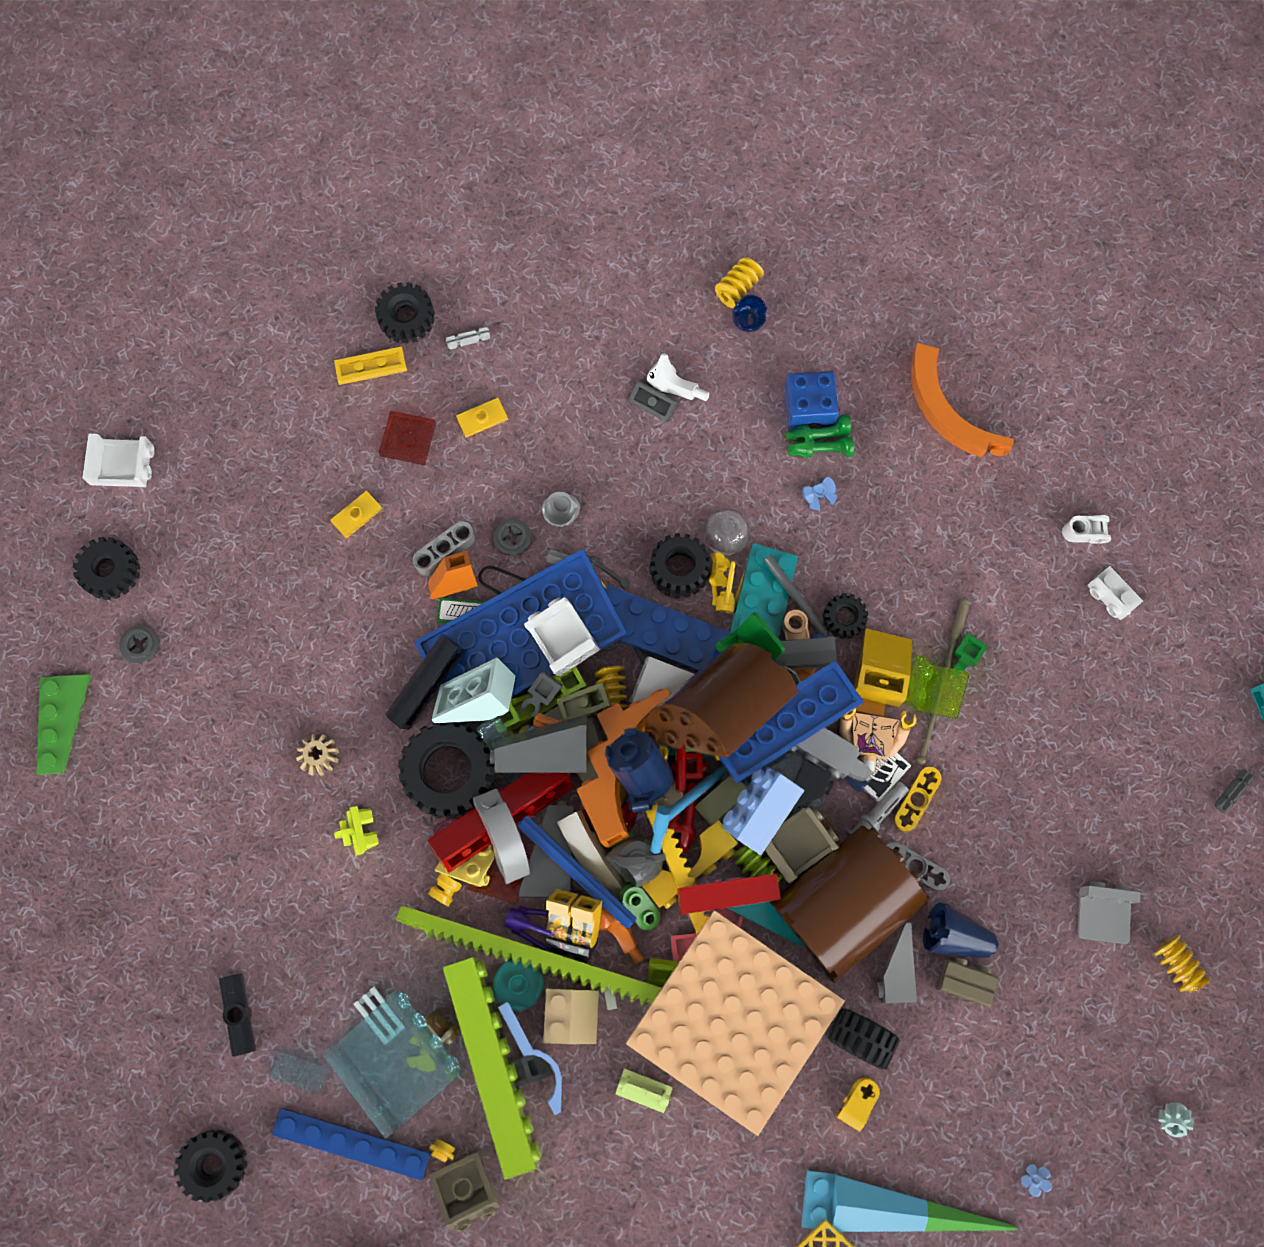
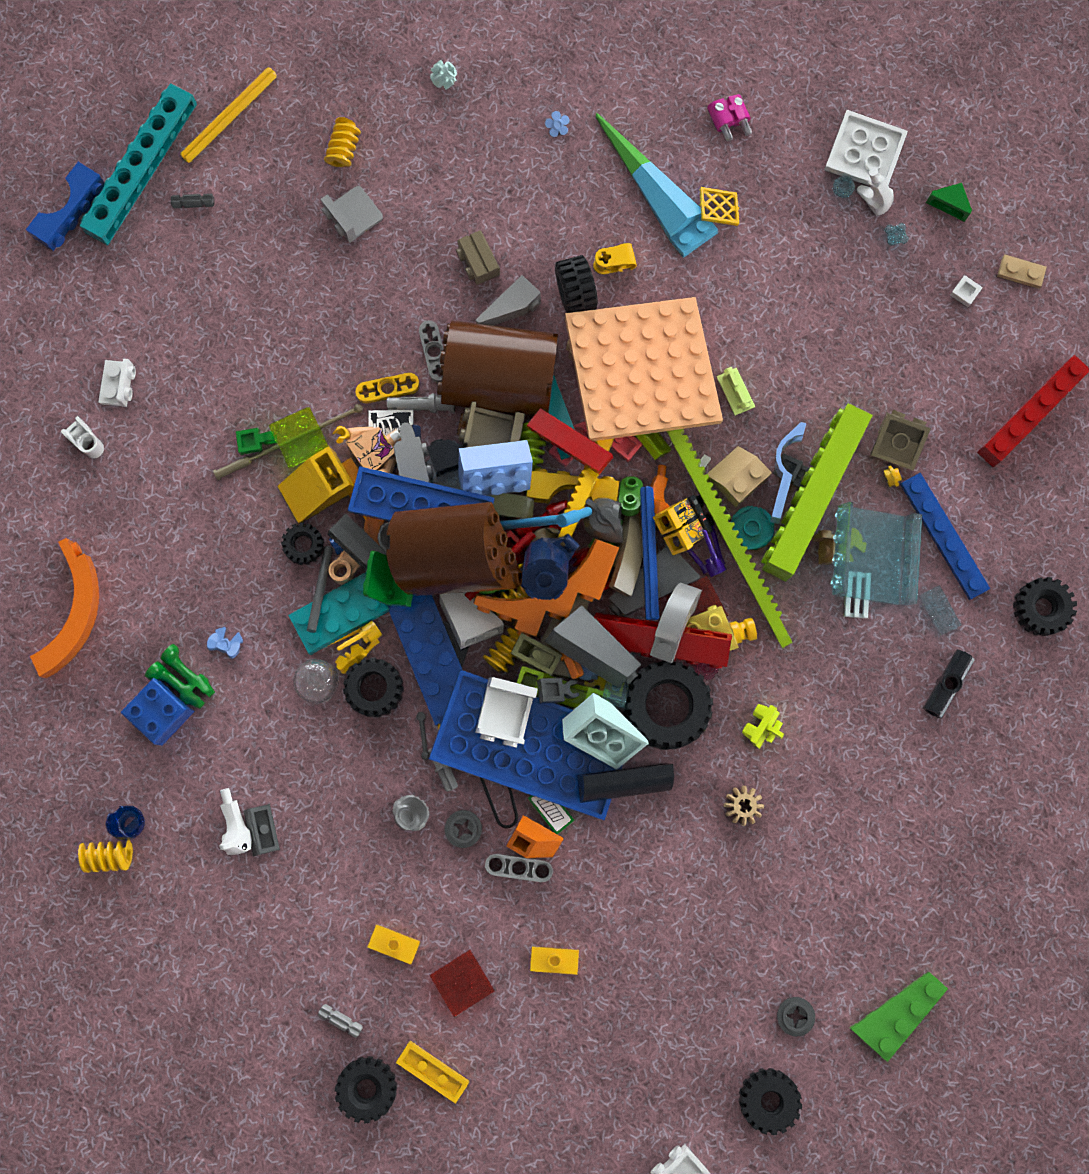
camera: 135 degrees left, 5 degrees up
(957, 934) = (455, 288): dark blue cone -> none

